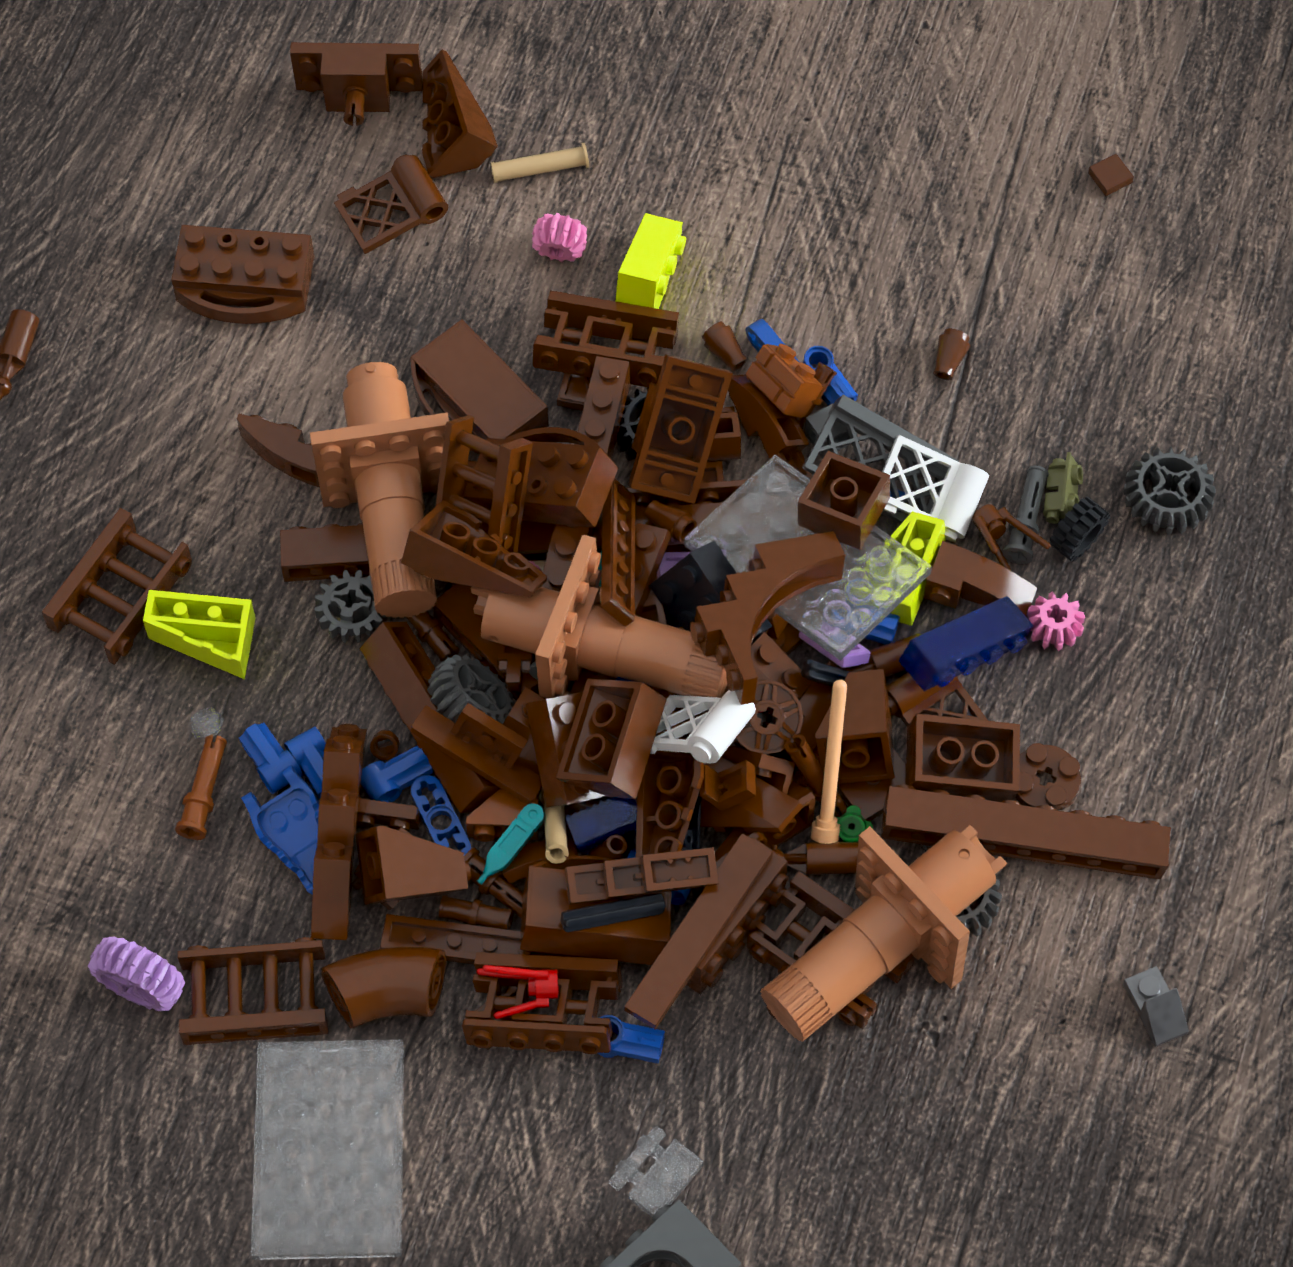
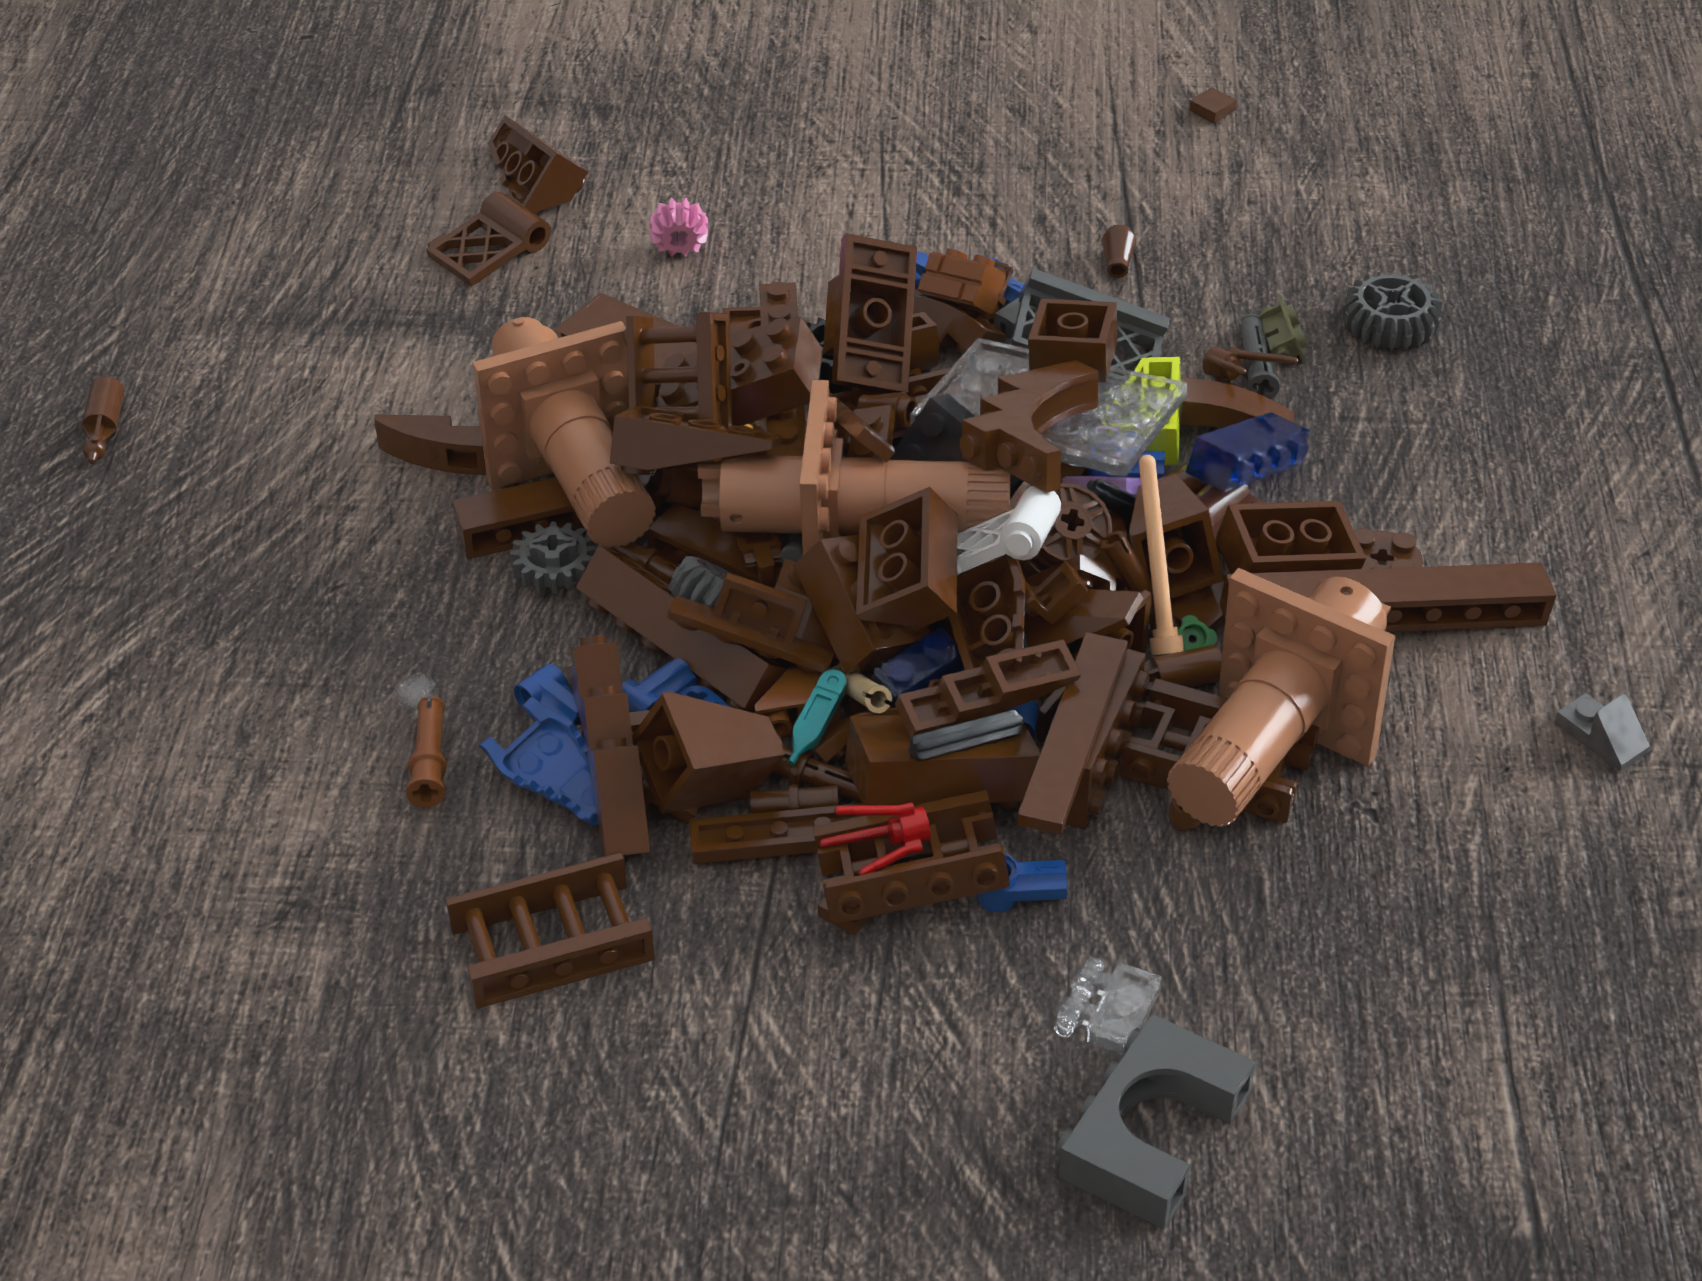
camera: 15 degrees left, 20 degrees down
(101, 559) = (252, 566): reddish brown fence -> none
(136, 973) = (400, 930): lavender gear -> none
(203, 627) = (385, 601): neon yellow wedge -> none
(242, 269) = (343, 311): reddish brown piece -> none
(268, 756) = (497, 706): blue piece -> none
(328, 1150) = (695, 1076): clear plate -> none
(356, 75) = (421, 141): reddish brown brick -> none
(386, 750) = (629, 660): reddish brown hinge -> none
(386, 983) = (708, 881): reddish brown brick -> none
(540, 163) = (636, 185): tan pin -> none
(604, 320) = (735, 289): reddish brown fence -> none
(650, 262) = (780, 236): neon yellow wedge -> none
(943, 588) = (1199, 417): reddish brown bracket -> none
(958, 491) = (1180, 336): white piece -> none
(1067, 618) = (1332, 429): bright pink gear -> none
(1079, 529) = (1319, 348): black tyre -> none

